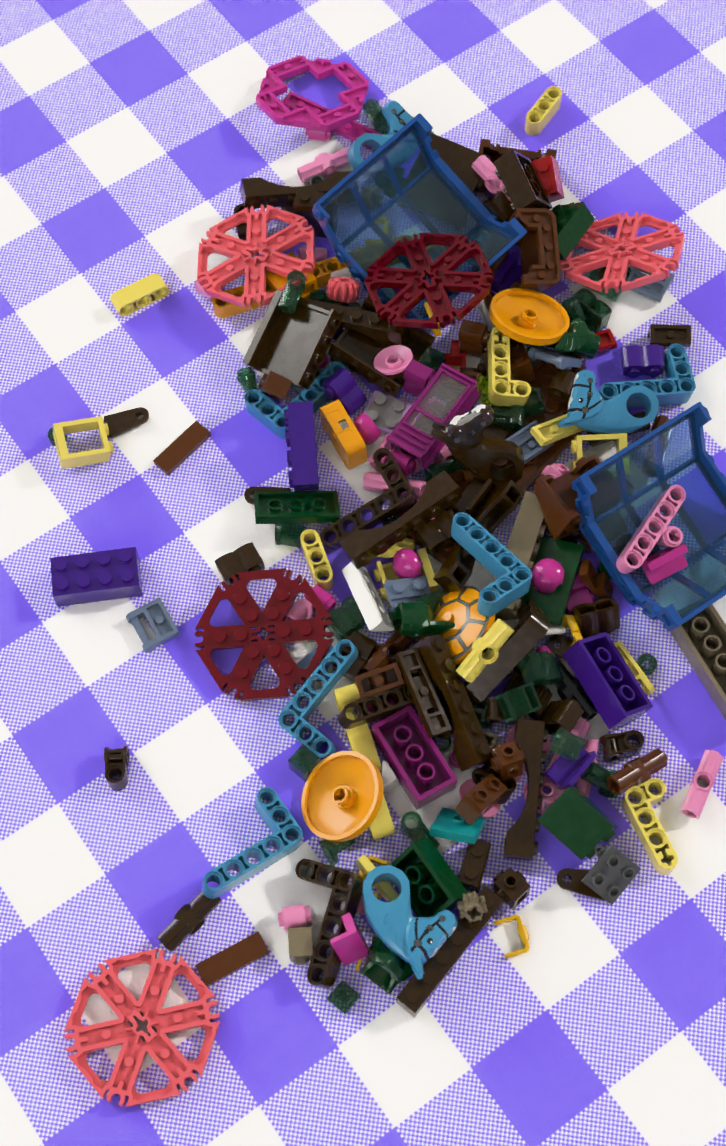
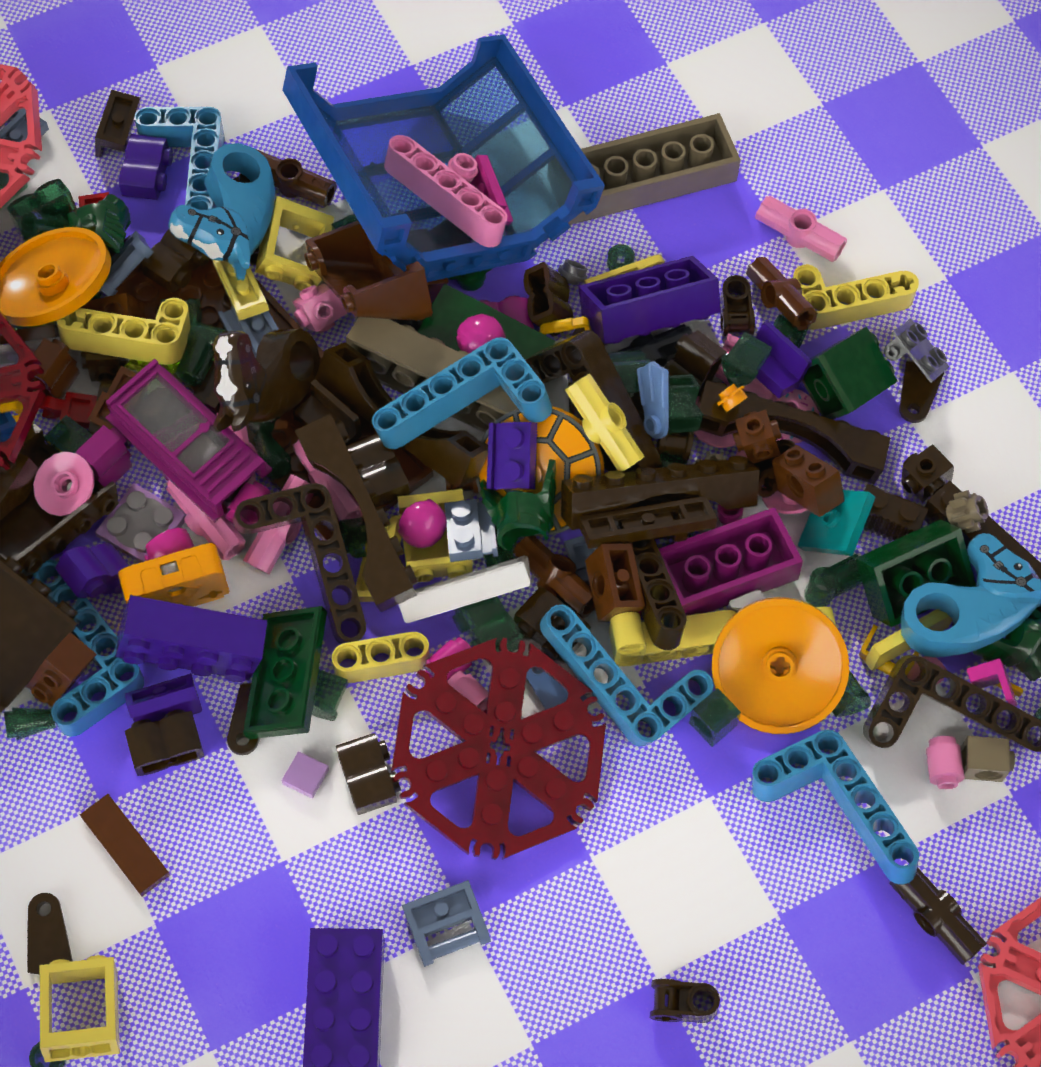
camera: 85 degrees left, 0 degrees up
(232, 959) = (997, 860): reddish brown tile -> none
(236, 533) = (305, 775): none -> lavender tile
(244, 453) = (164, 742): none -> dark brown brick
(268, 446) = (161, 698): none -> dark purple panel
(455, 601) = (512, 456): none -> dark purple plate
(517, 680) = (654, 397): none -> medium blue piece
(522, 931) = (988, 475): yellow piece -> none
(530, 736) = (731, 397): none -> light orange plate
(596, 583) = (493, 287): reddish brown slope -> none
(626, 633) = (573, 272): none -> flat silver plate

